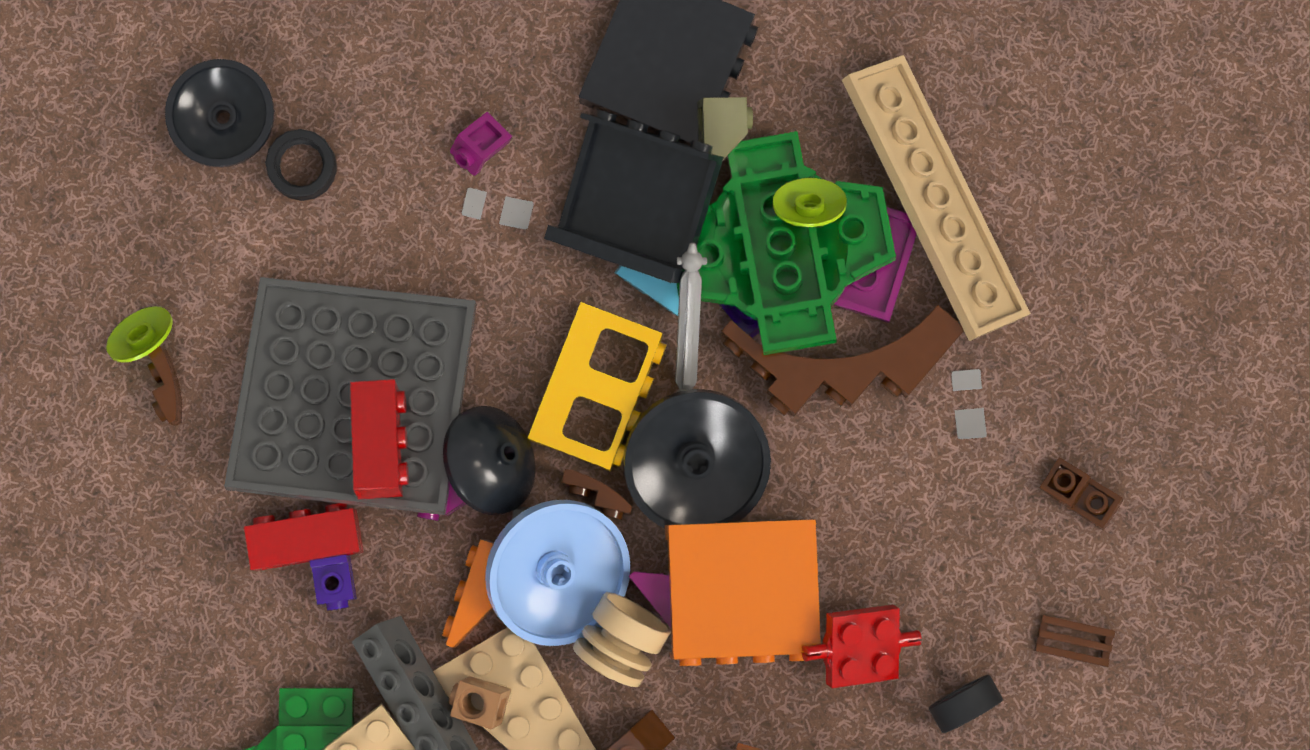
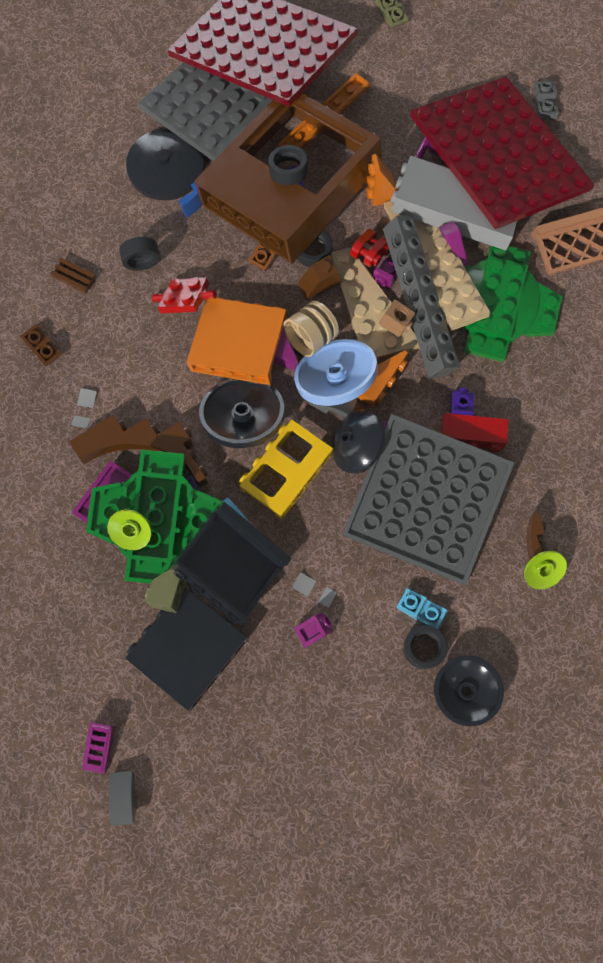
camera: 170 degrees left, 10 degrees down
(320, 223) = (422, 609): none -> medium azure slope
(378, 439) = (418, 461): red brick -> none
(607, 499) = (297, 408): reddish brown slope -> none
(689, 318) = (222, 483): light grey wheel -> none
(936, 197) = (59, 523): tan plate -> none

